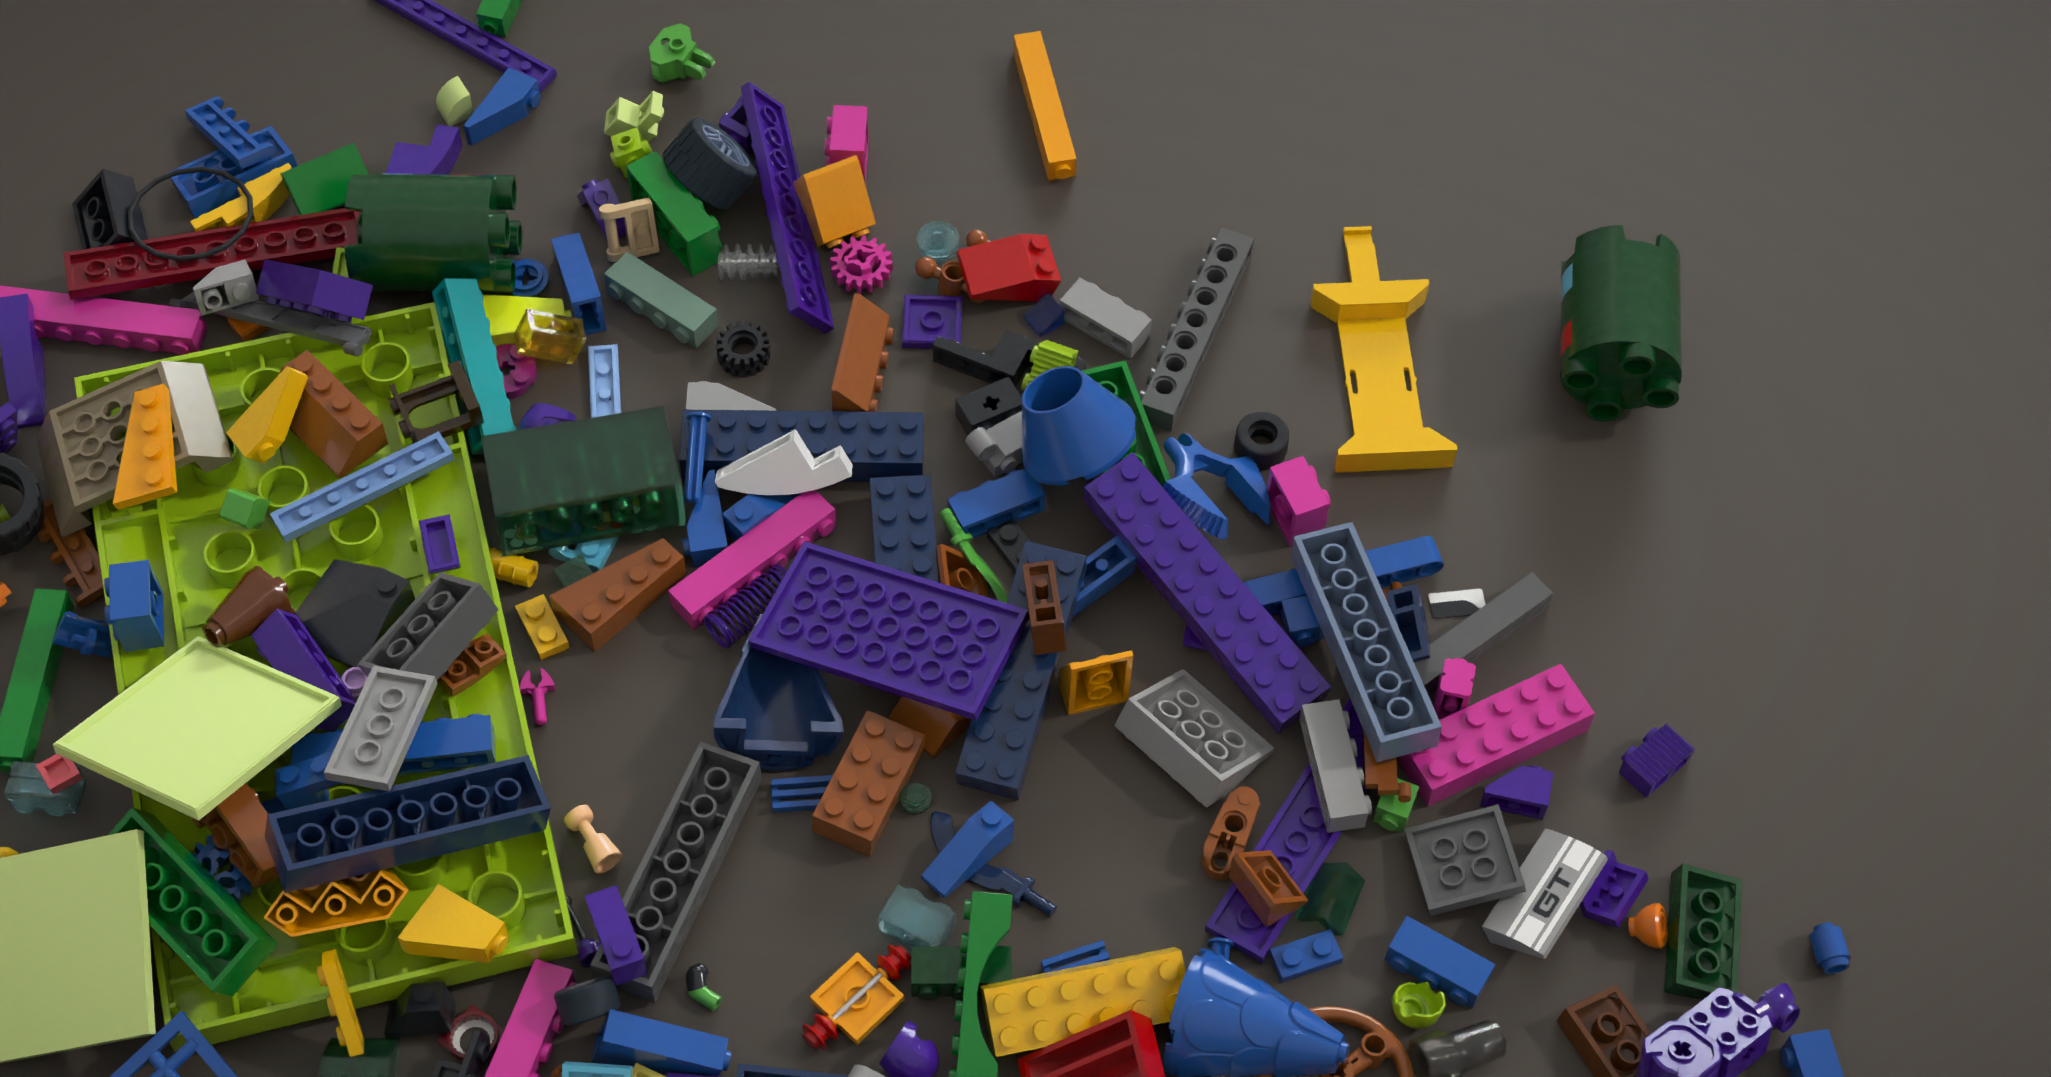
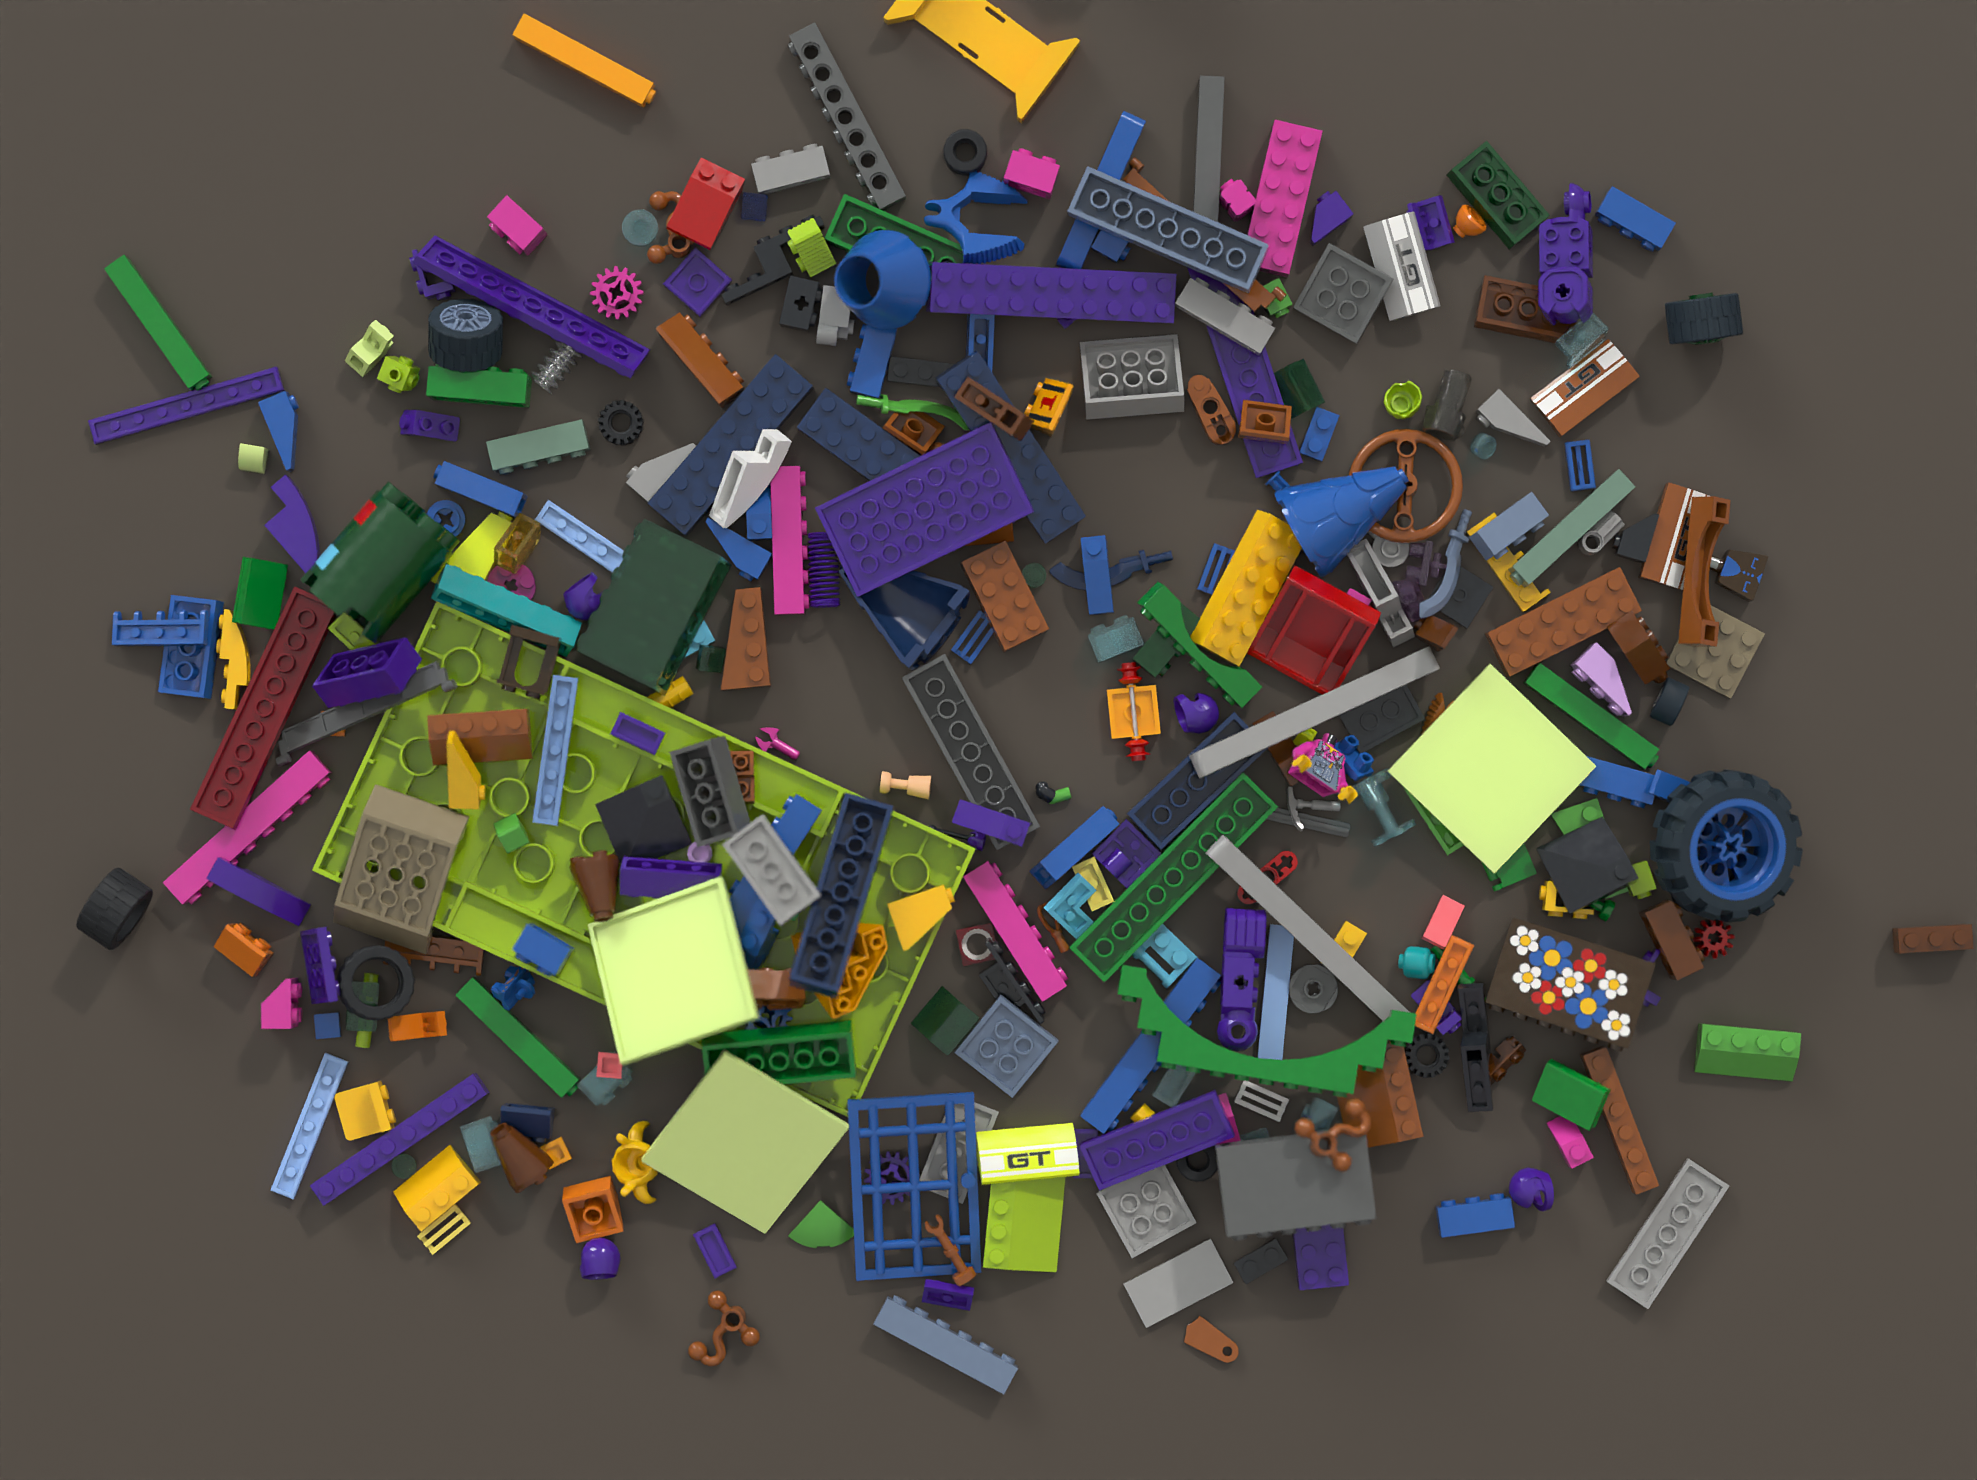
camera: 45 degrees left, 30 degrees up
(103, 211) = (172, 757): black slope -> none
(148, 450) = (431, 867): light orange wing -> none
(192, 256) = (263, 728): black piece -> none
(225, 288) = (307, 723): light grey slope -> none
(340, 1003) = (911, 1008): yellow plate -> none
(421, 1011) = (940, 964): black slope -> none
(542, 627) = (728, 705): yellow plate -> none
(587, 1000) = (1017, 868): black wheel -> none
(639, 228) = (475, 420): tan plate -> none
(678, 56) = (339, 276): bright green hinge -> none
(695, 456) = (695, 525): blue axle -> none
(836, 202) = (559, 274): light orange slope -> none
(1410, 617) = (1172, 184): dark blue slope -> none
(1439, 962) = (1389, 364): blue brick -> none
(1456, 602) = (1174, 133): sticker -> none
(1655, 759) = (1375, 117): dark purple brick -> none
(1830, 948) = (1567, 132): blue brick -> none

